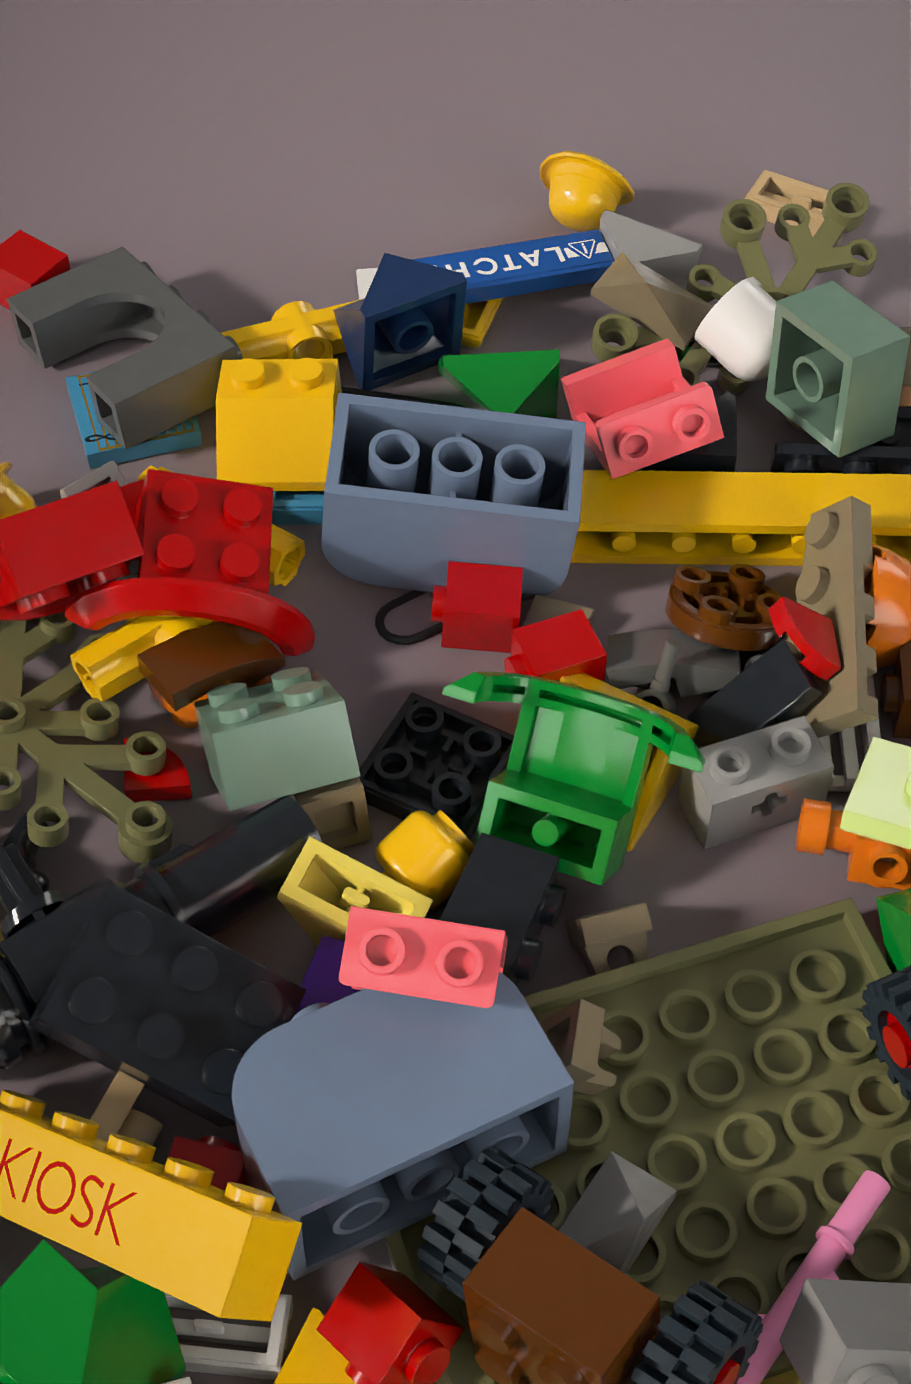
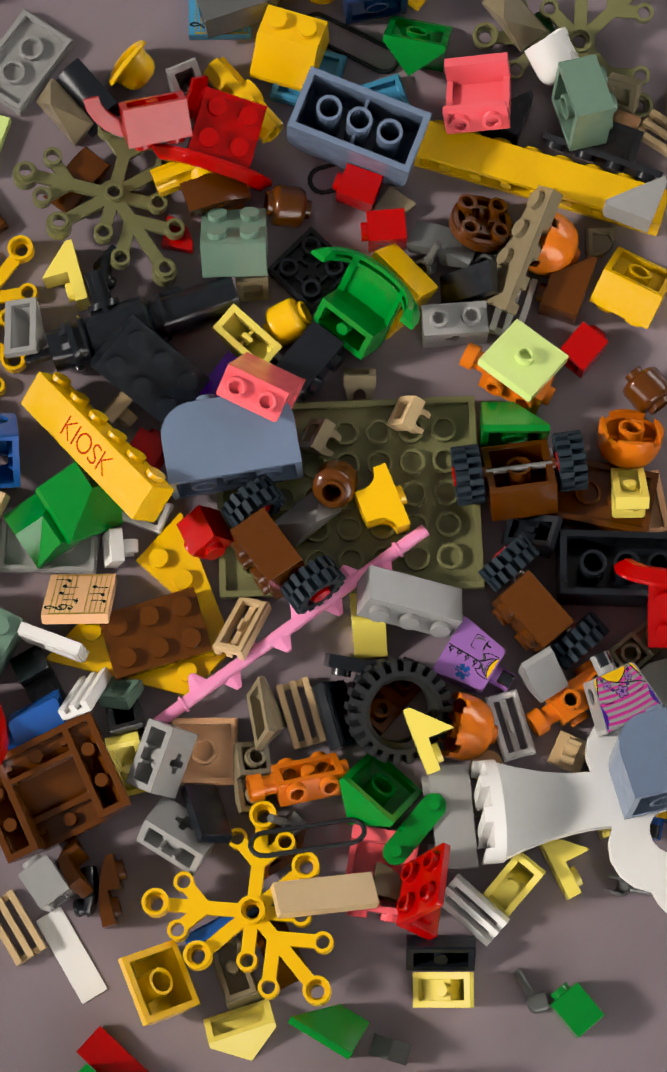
camera: 20 degrees right, 25 degrees up
(358, 664) = (287, 206): none -> reddish brown head
(667, 1149) = (335, 483): none -> reddish brown head
(740, 958) = (406, 414): none -> tan tile
(766, 1147) = (383, 502): none -> yellow brick
(810, 633) = (500, 261): red tile -> none

